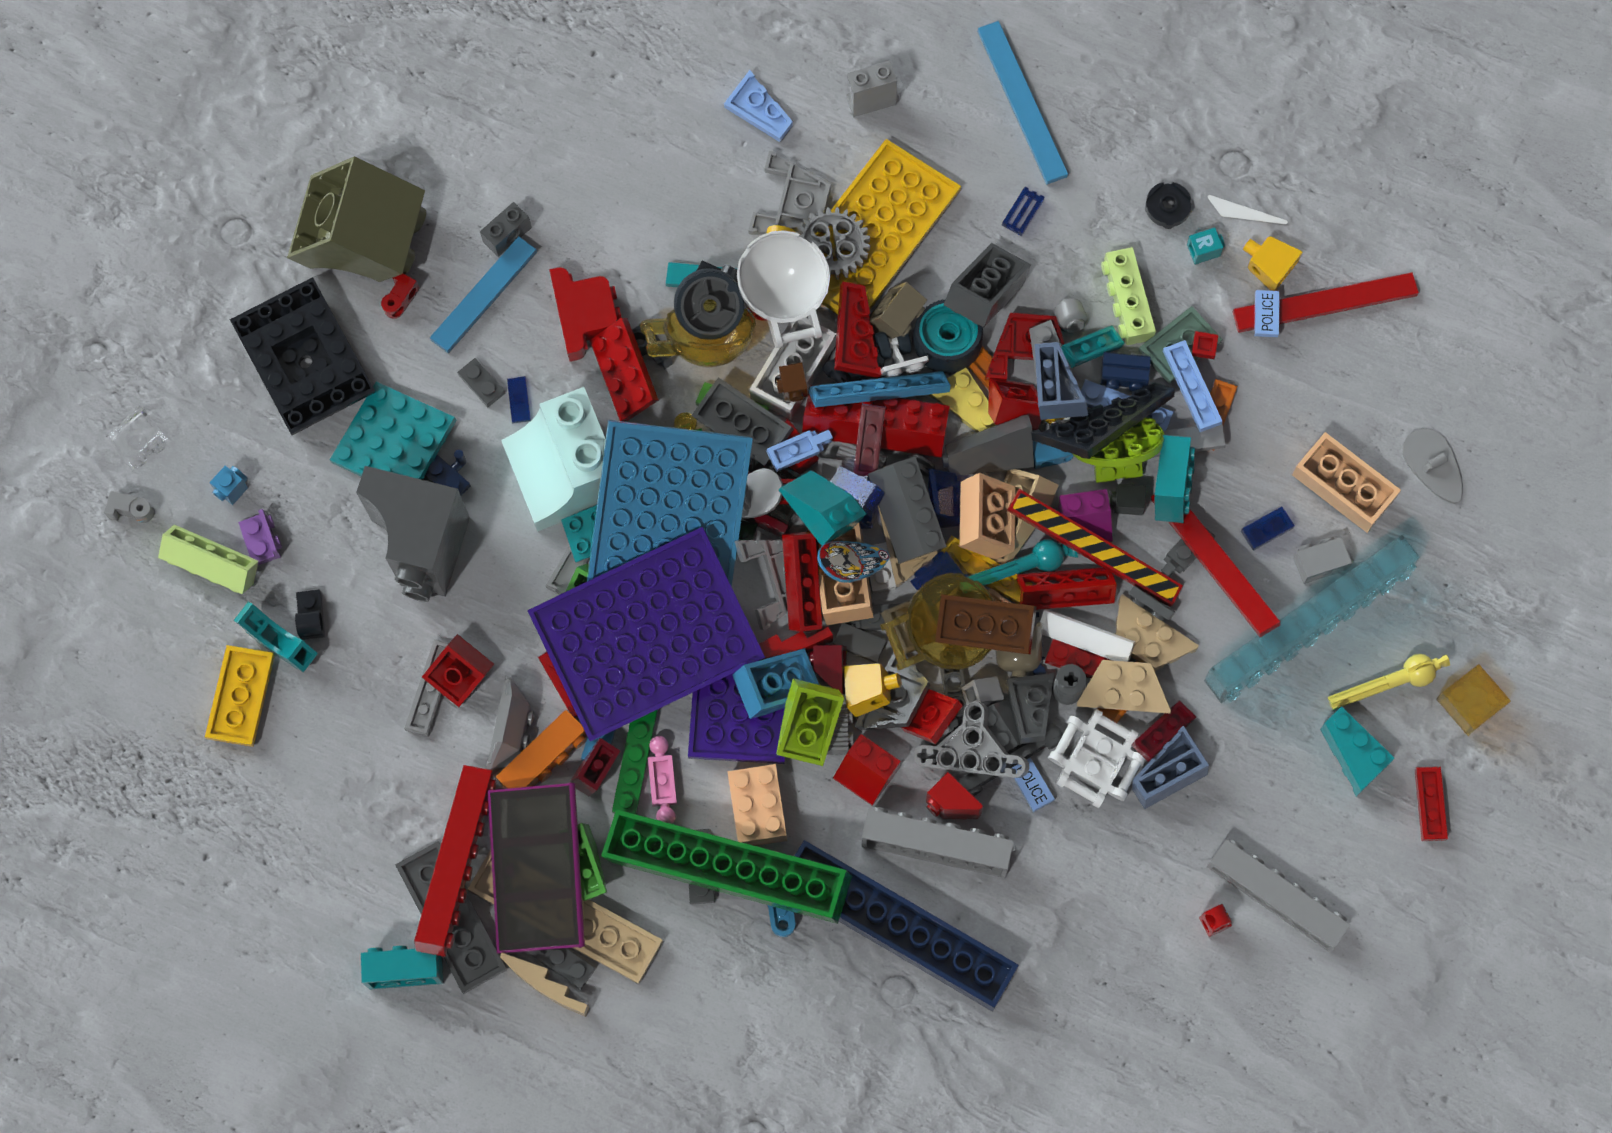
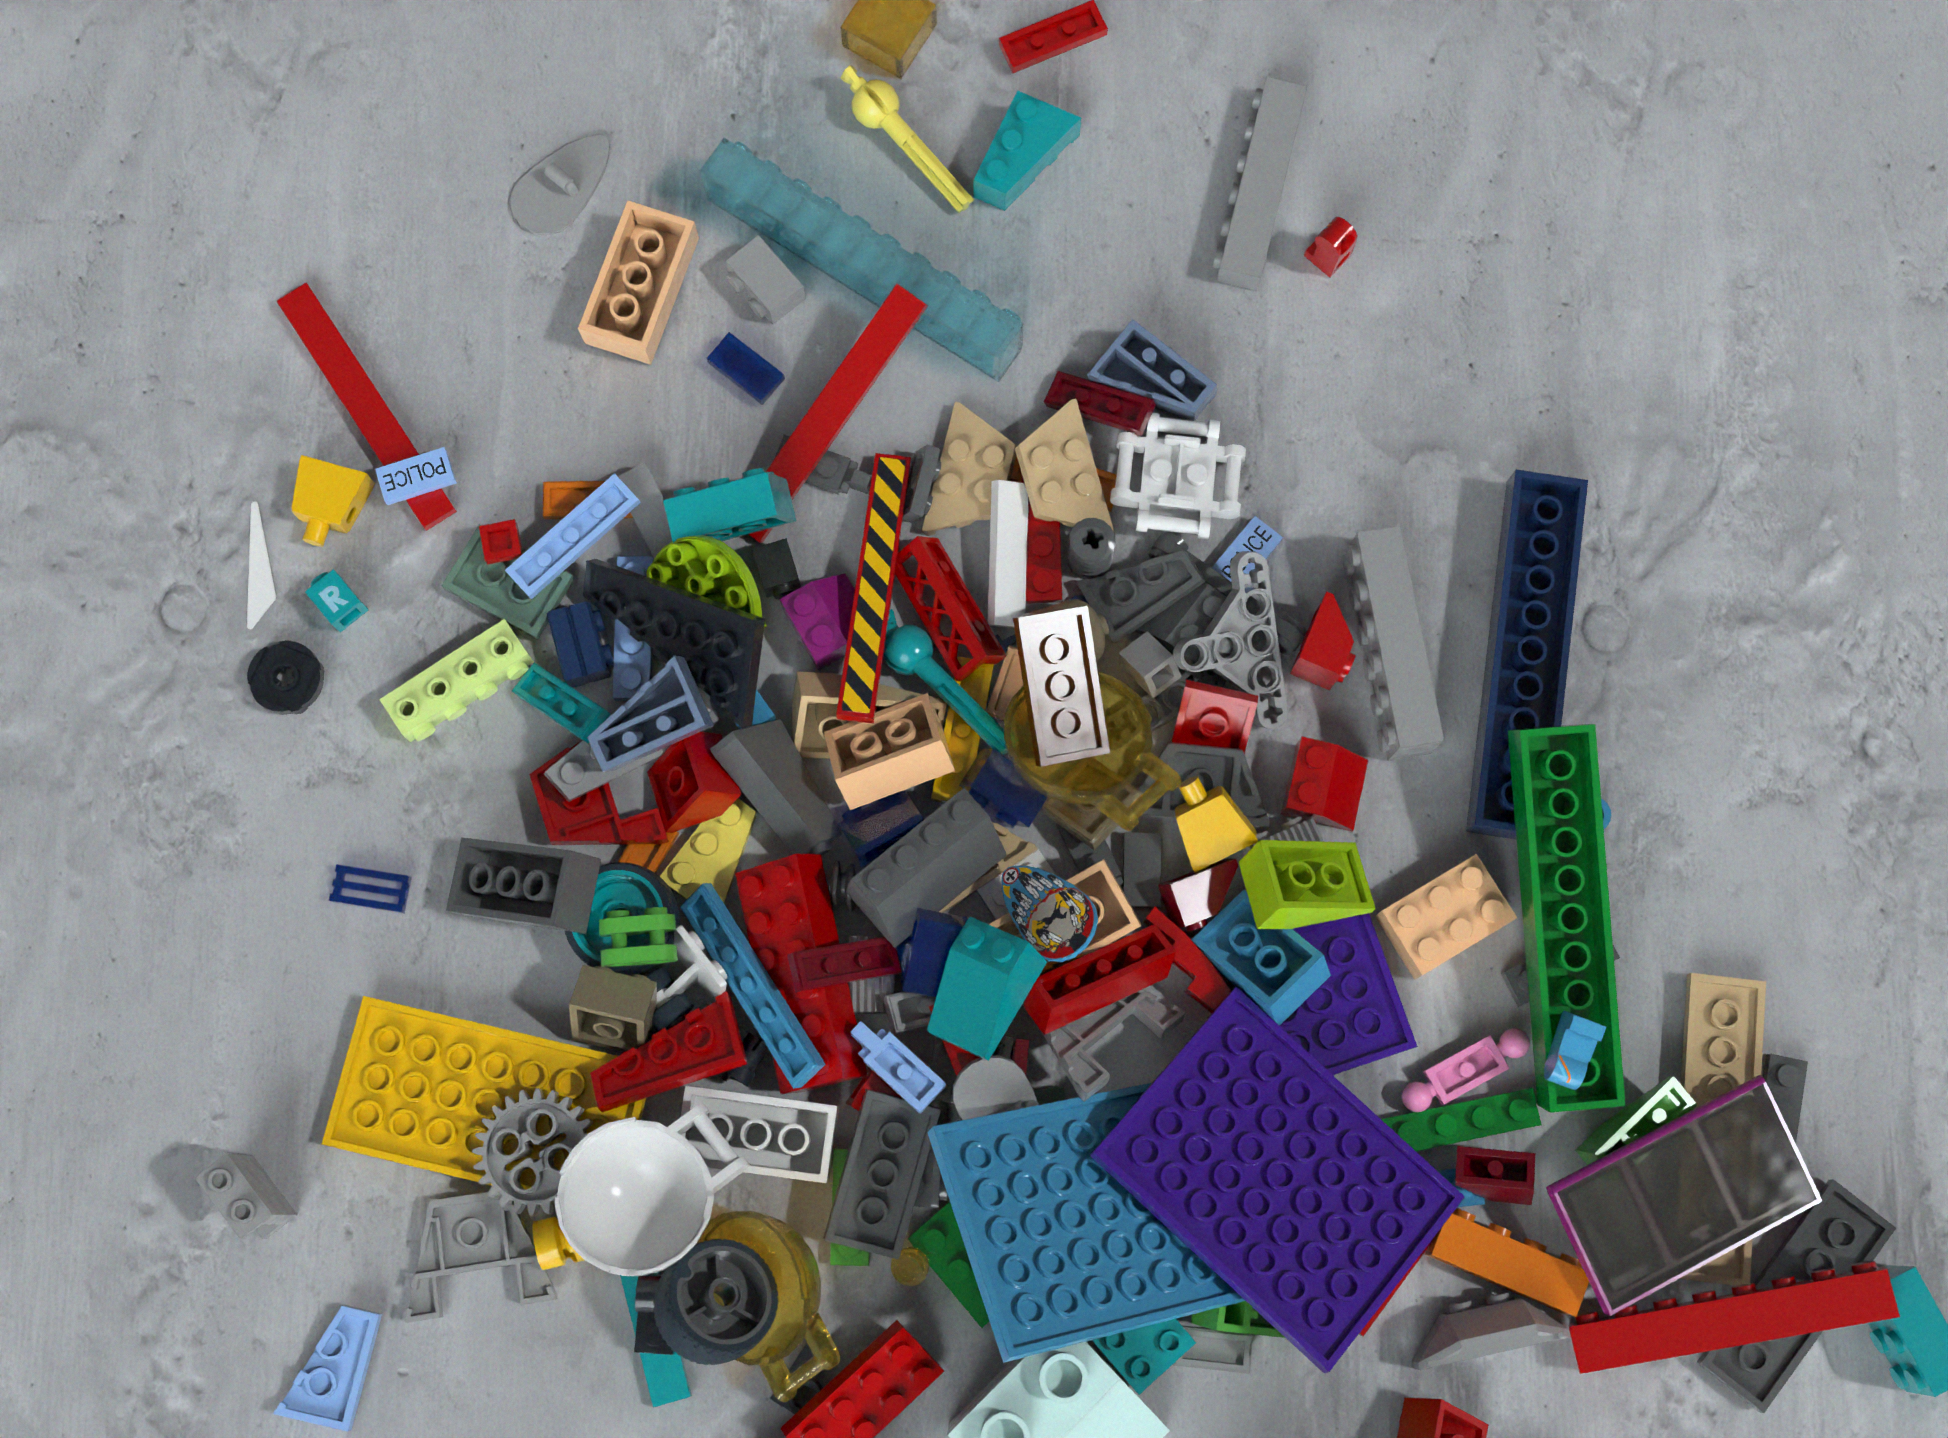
camera: 115 degrees left, 5 degrees up
(538, 977) = (1825, 1132): tan slope -> none
(646, 831) = (1572, 1050): none -> dark azure leg
(792, 382) = (796, 1117): reddish brown brick -> none
(935, 344) = (620, 925): none -> bright green brick
(1022, 102) = (183, 960): dark azure tile -> none
(1070, 315) = (519, 754): light grey head -> none

